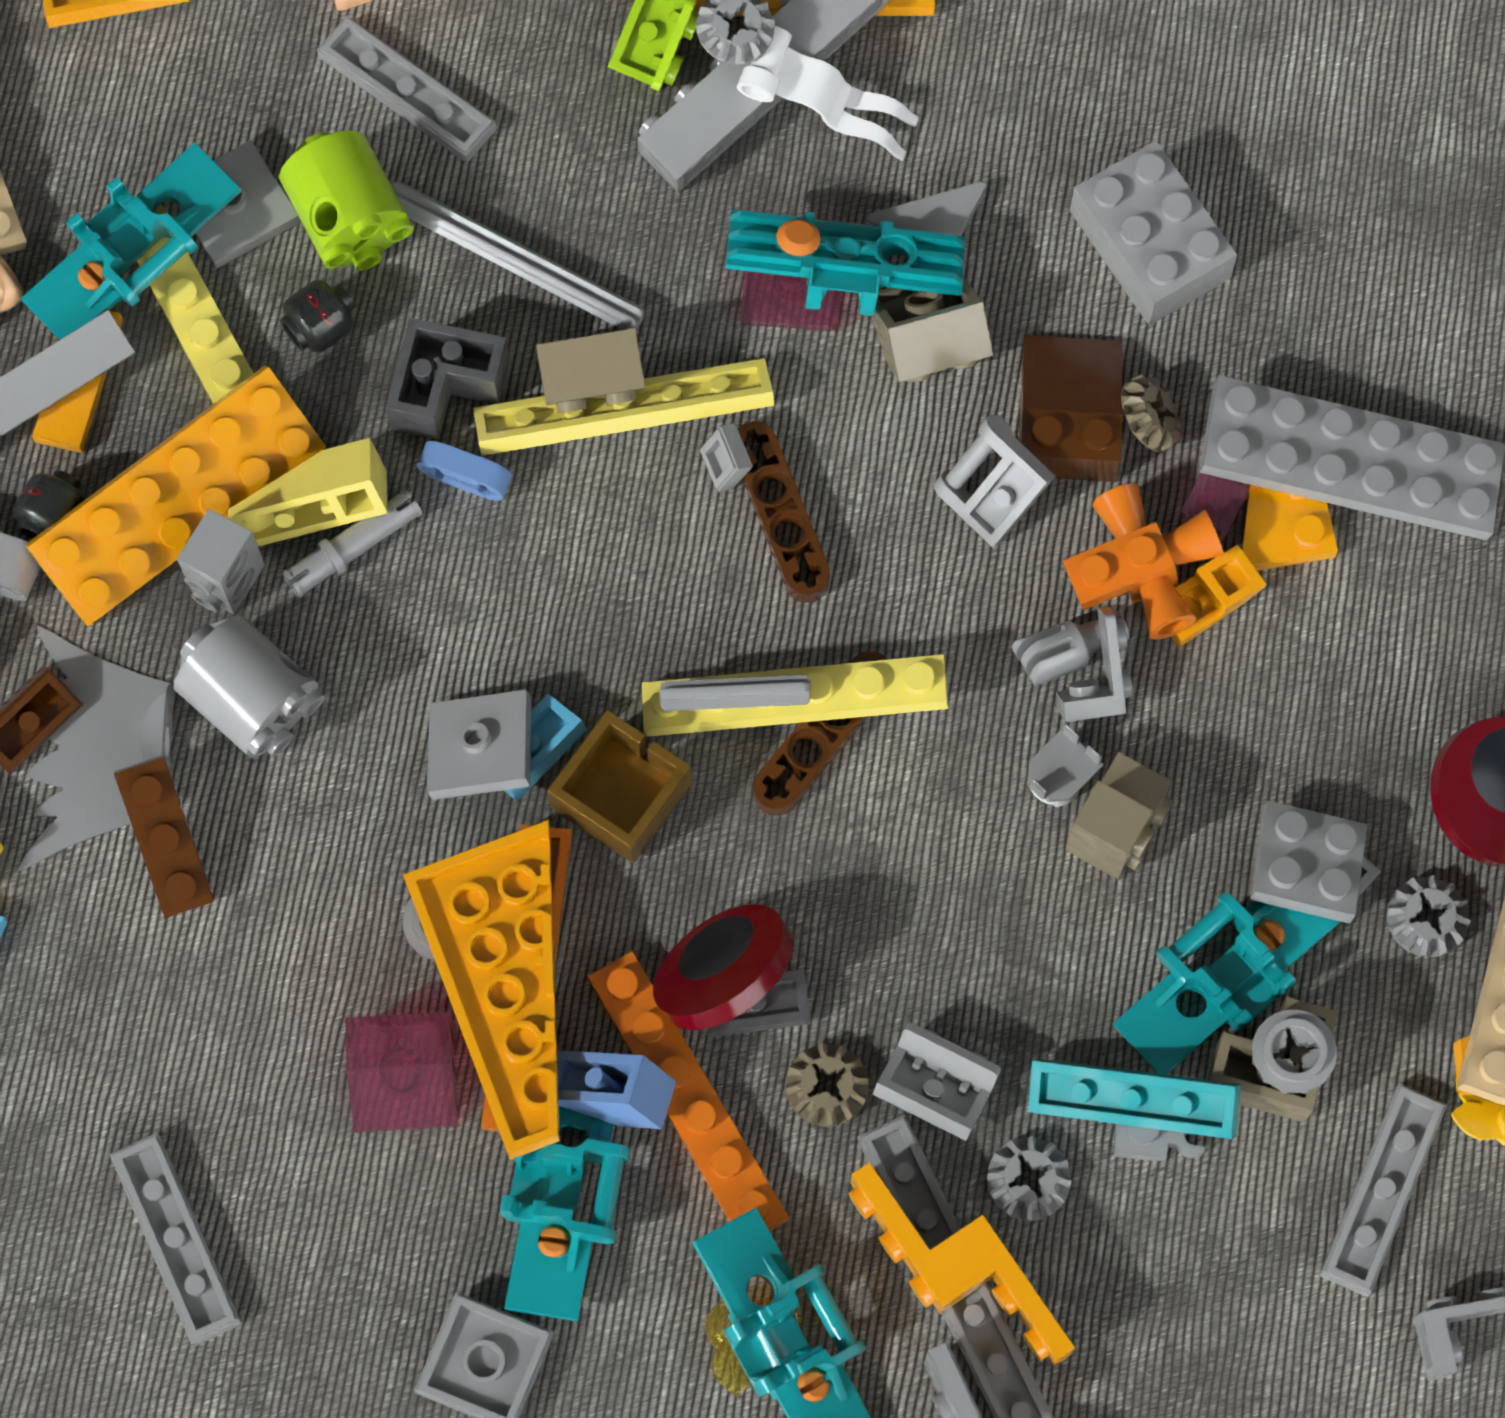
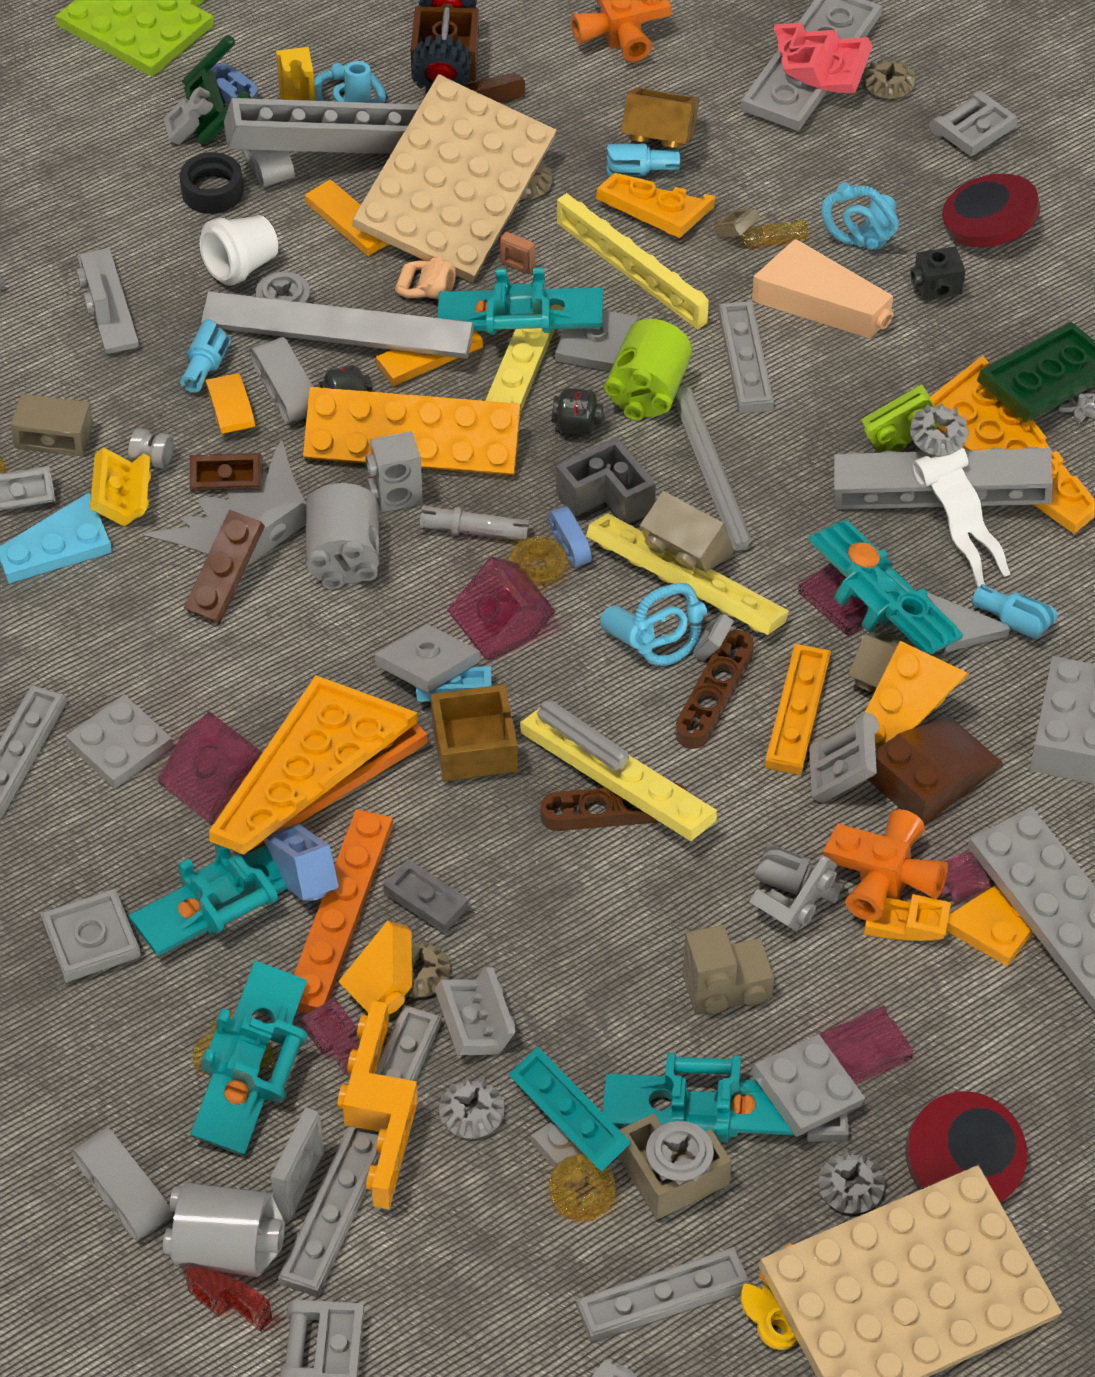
camera: 45 degrees right, 20 degrees down
(43, 172) = (517, 252): none -> nougat tile
(173, 76) = (632, 261): none -> light yellow plate
(267, 1127) = (119, 741): none -> light grey plate
(319, 494) = (479, 485): light yellow slope -> none
(444, 511) = (540, 549): none -> clear yellow gear
(487, 619) = (500, 608): none -> clear pink slope
(659, 520) = (638, 629): none -> medium azure piece
(723, 967) = (424, 853): dark red piece -> none
(817, 1131) = (382, 969): none -> light orange slope
(822, 1230) = (331, 1029): none -> clear pink plate
(878, 459) = (797, 709): none -> light orange tile
(976, 159) = (1016, 610): none -> medium azure arm
(987, 355) = (910, 691): none -> light orange wing
(1062, 768) = (732, 918): light grey piece -> none
(1150, 413) = (965, 794): dark tan gear -> none
(1197, 1156) = (565, 1199): none -> clear yellow gear
(1301, 763) = (868, 1044): none -> clear pink plate

